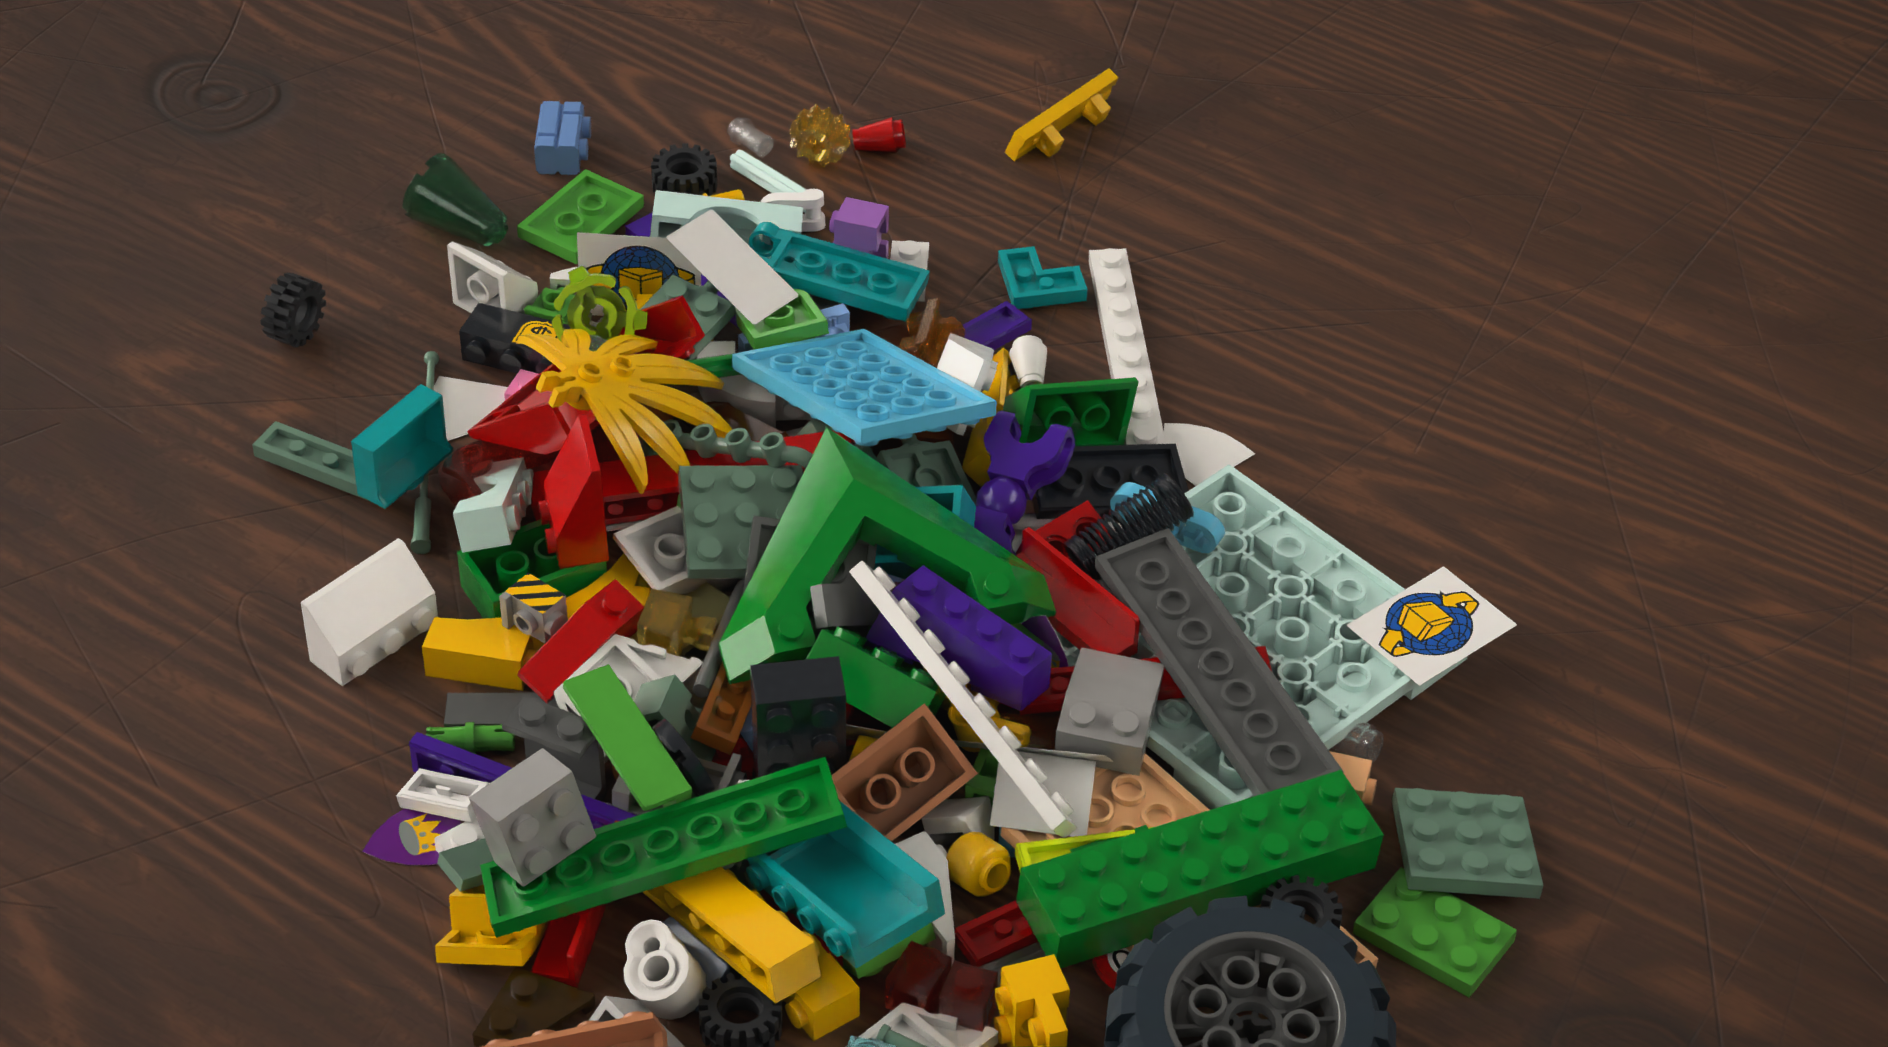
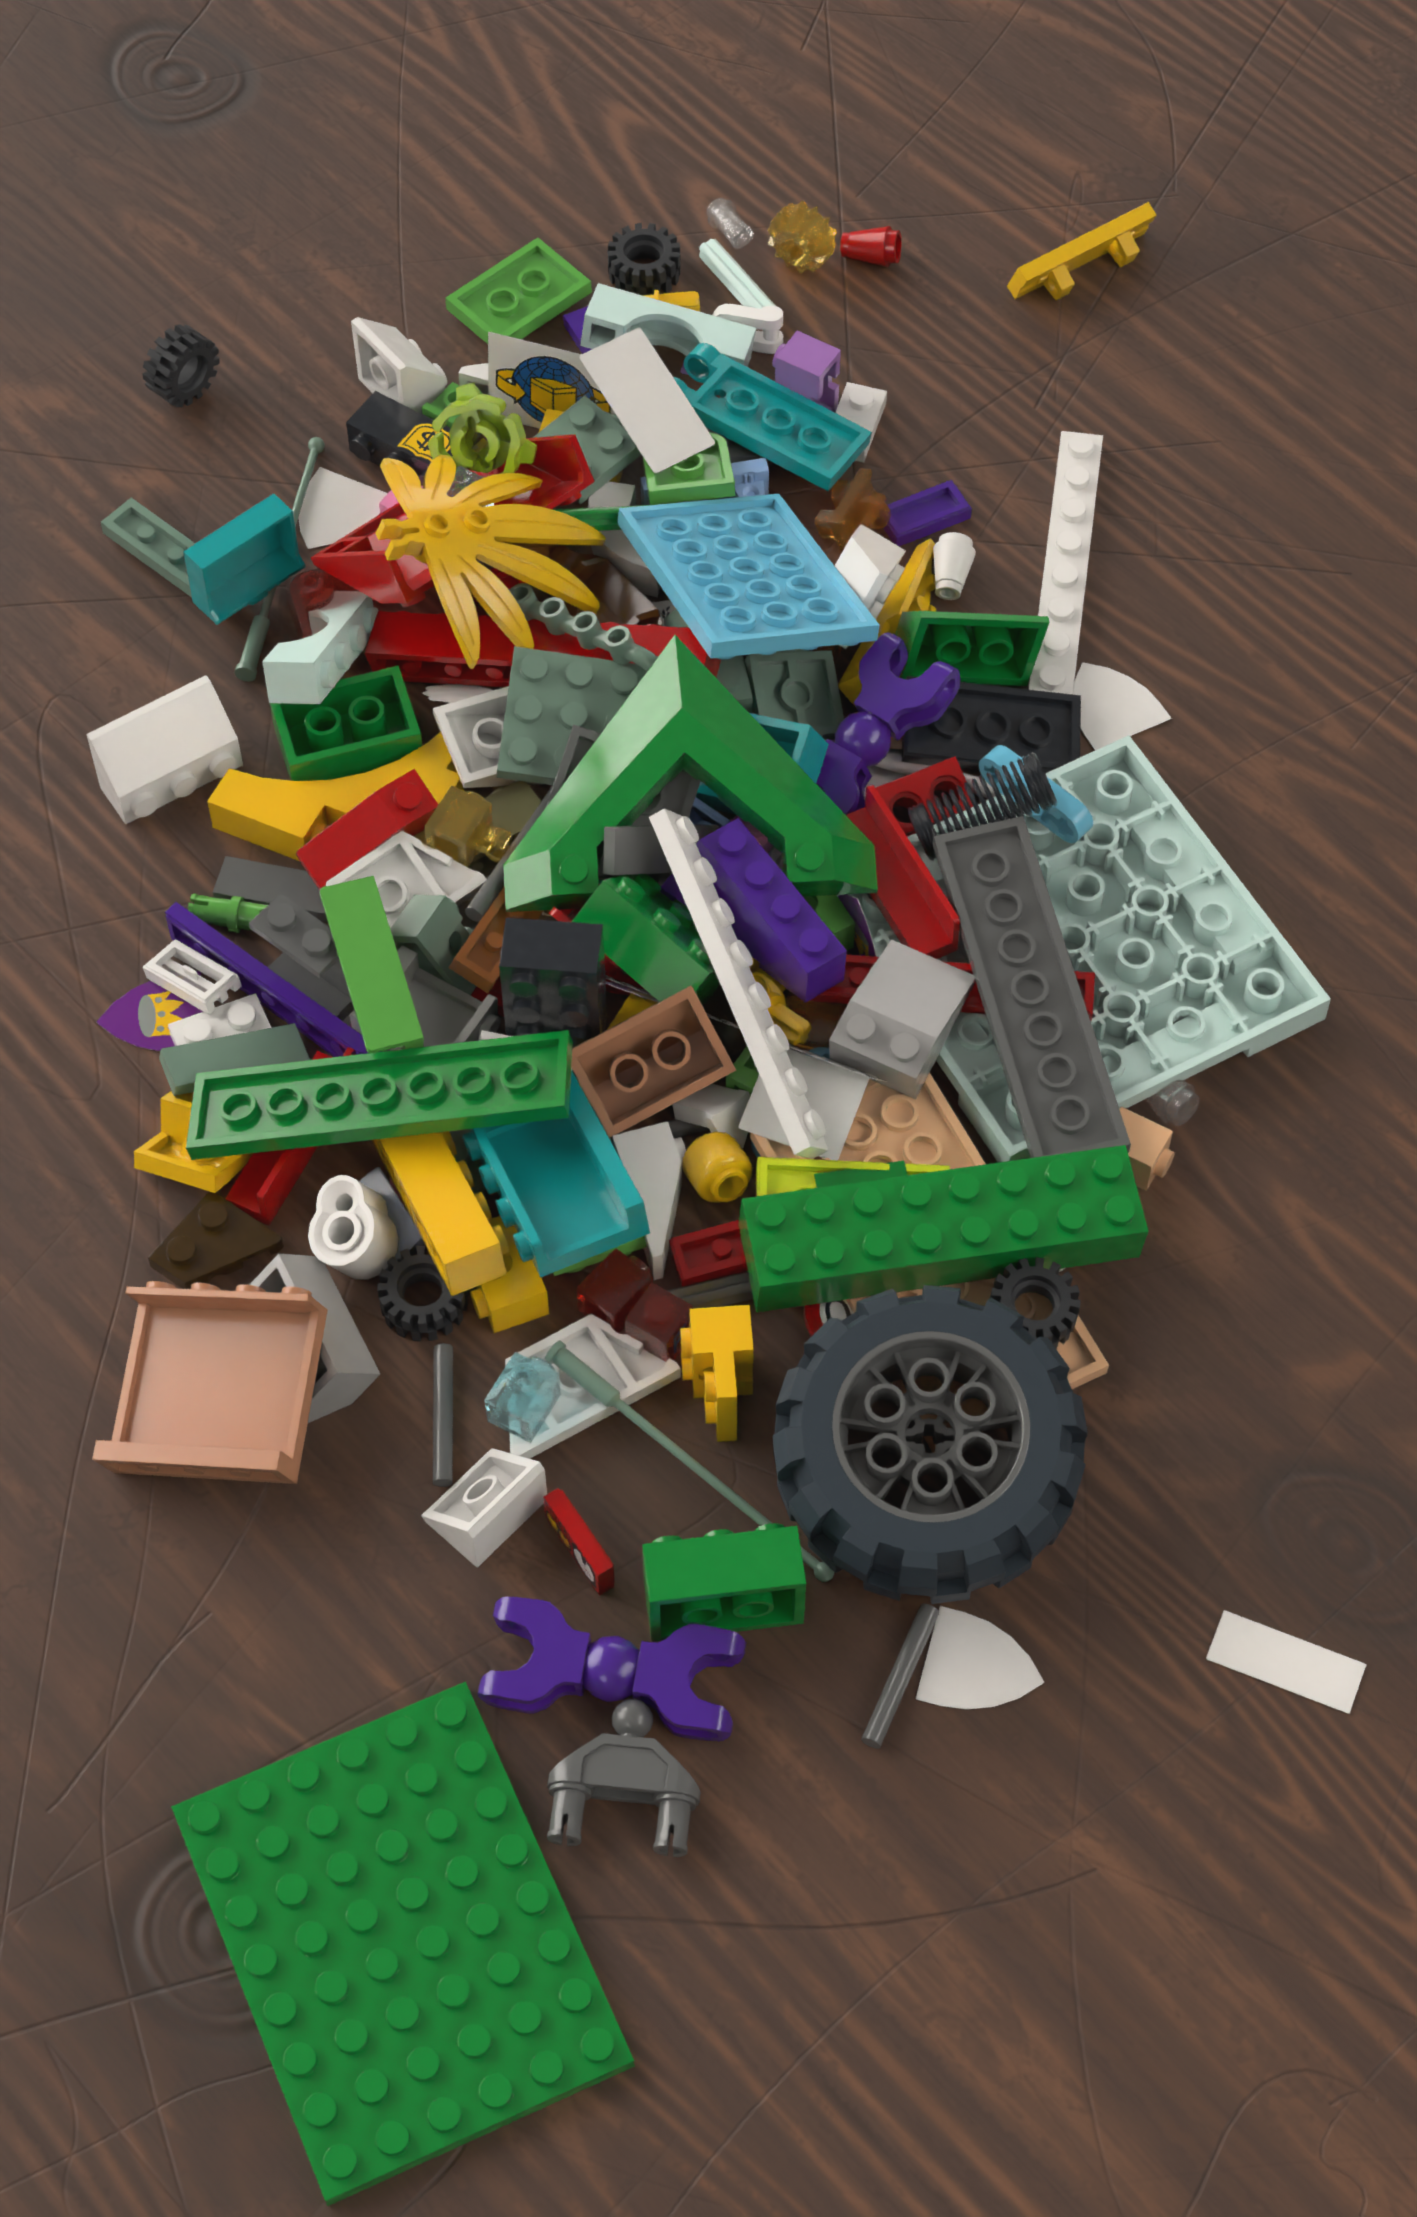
camera: 15 degrees right, 15 degrees up
(454, 203) = (383, 259): clear green cone -> none
(532, 817) = (249, 1040): light grey brick -> none
(533, 608) = (328, 781): light grey brick -> none
(561, 138) = (523, 192): medium blue brick -> none
(575, 502) = (395, 671): red slope -> none
(684, 758) = (431, 992): black tile -> none
(1033, 287) = (991, 469): teal plate -> none
(1431, 625) = (1291, 978): sticker -> none
(1435, 933) = (1184, 1342): bright green plate -> none
(1466, 843) = (1249, 1246): sand green plate -> none

